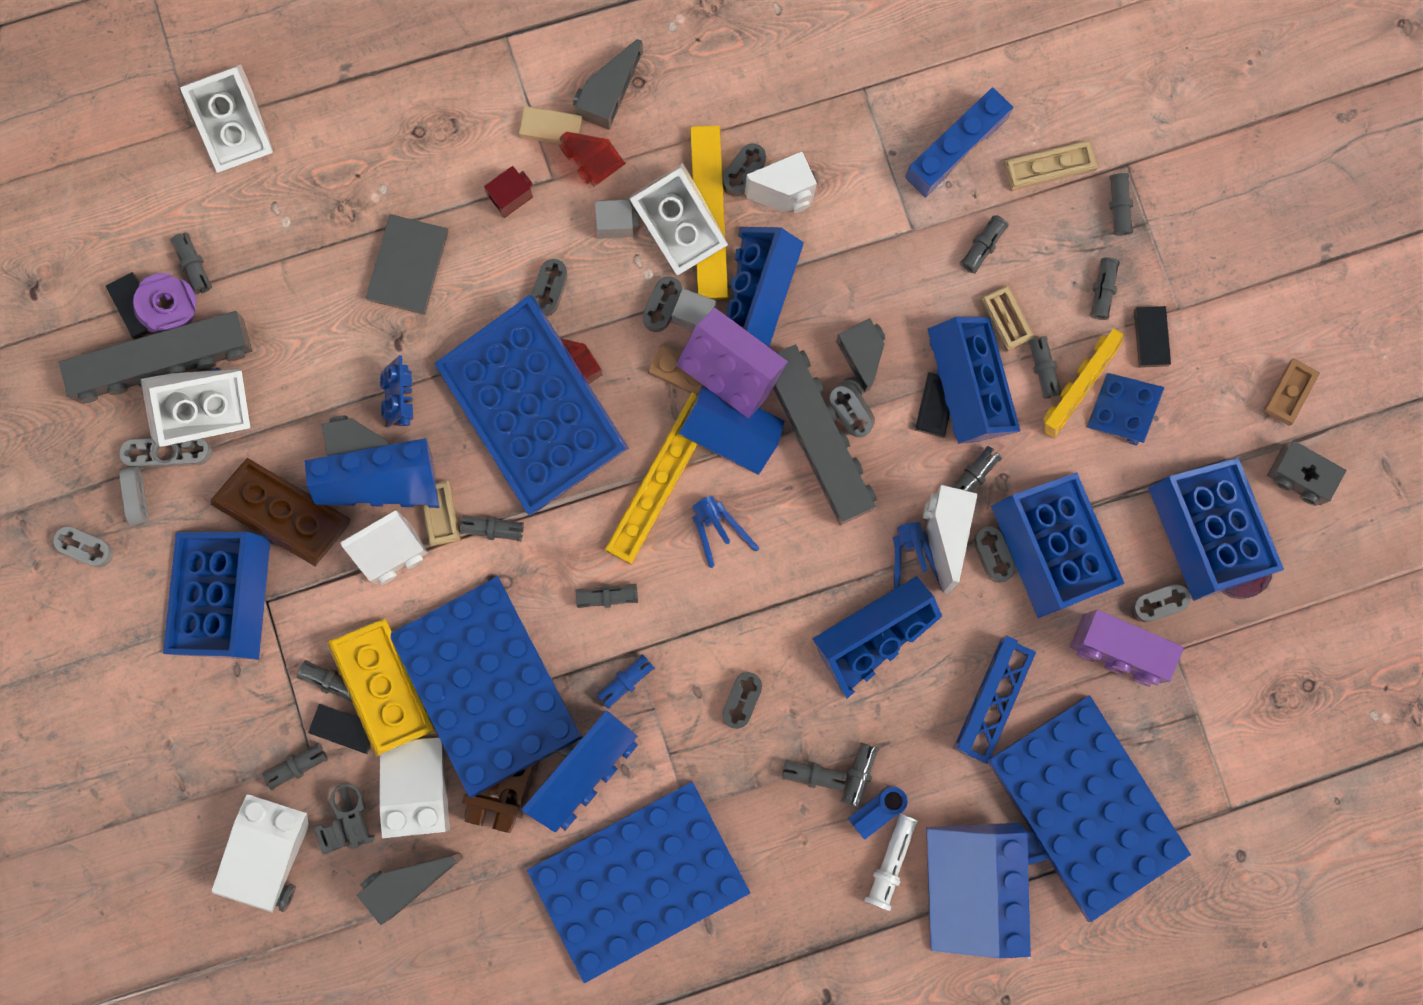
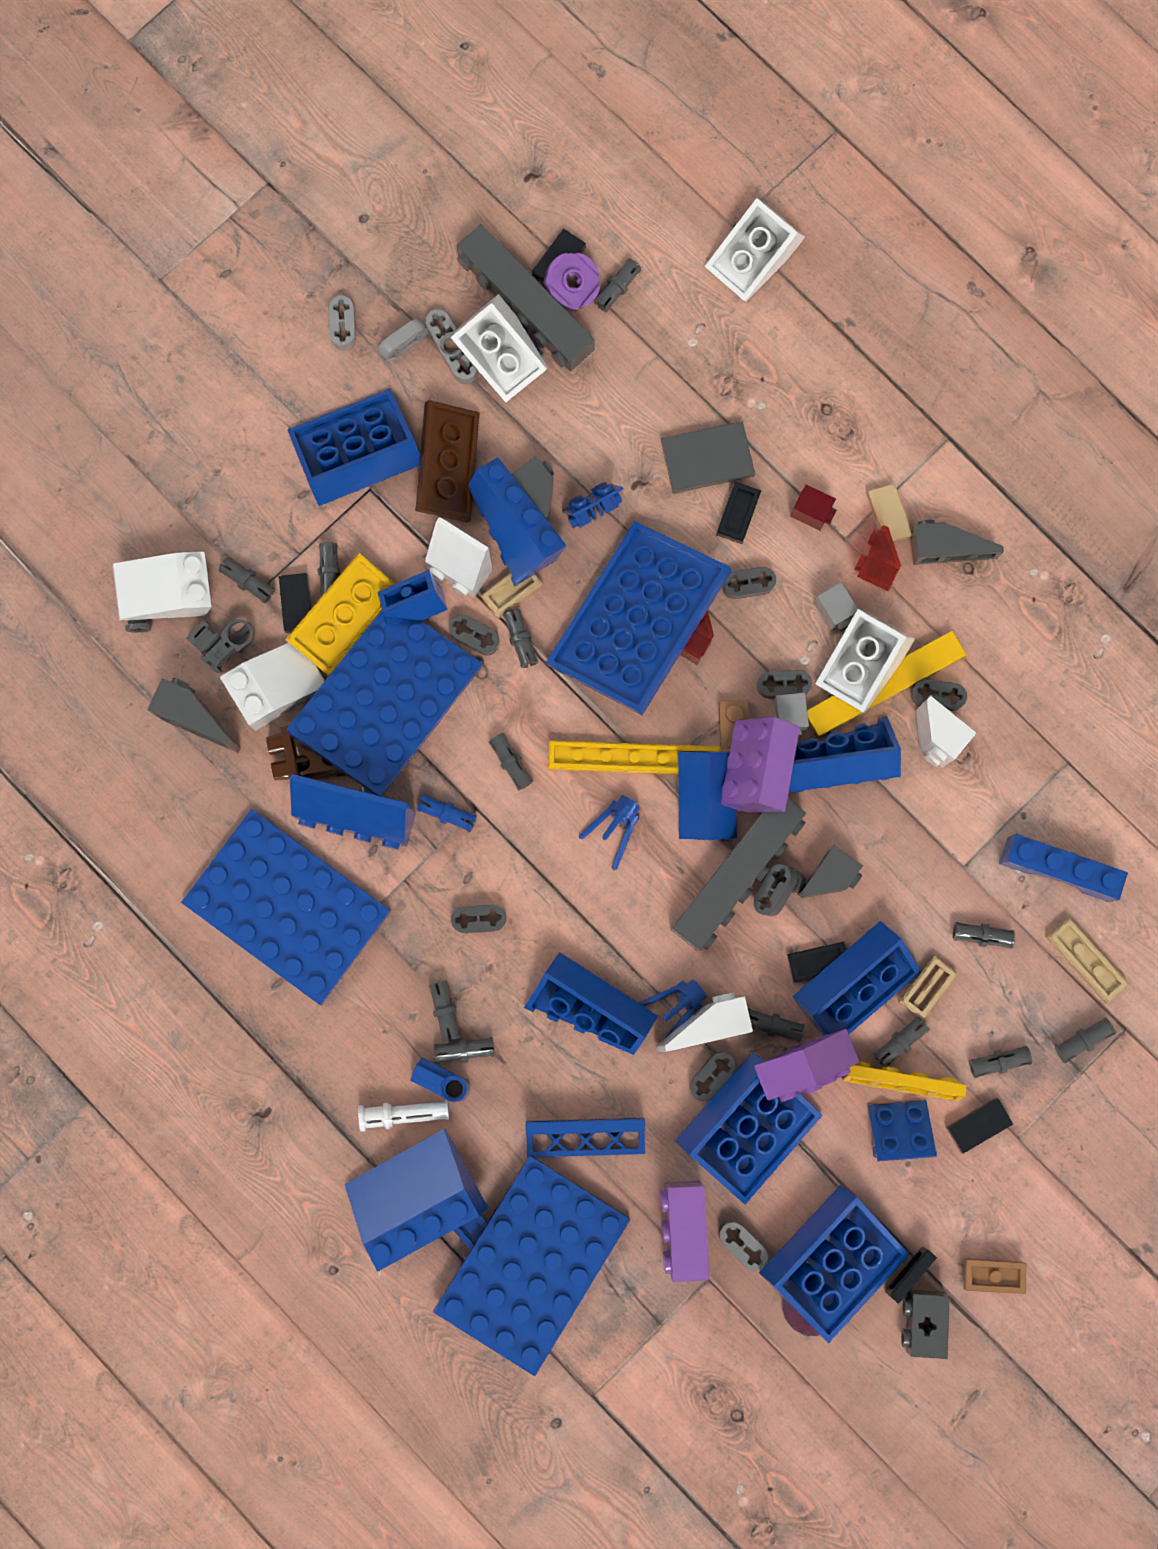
camera: 70 degrees right, 0 degrees up
(400, 610) = (413, 598): none -> blue slope
(461, 564) = (470, 640): none -> dark grey beam
(476, 263) = (738, 513): none -> black tile
(1031, 460) = (807, 1066): none -> medium lavender brick
(1256, 465) = (910, 1274): none -> black tile

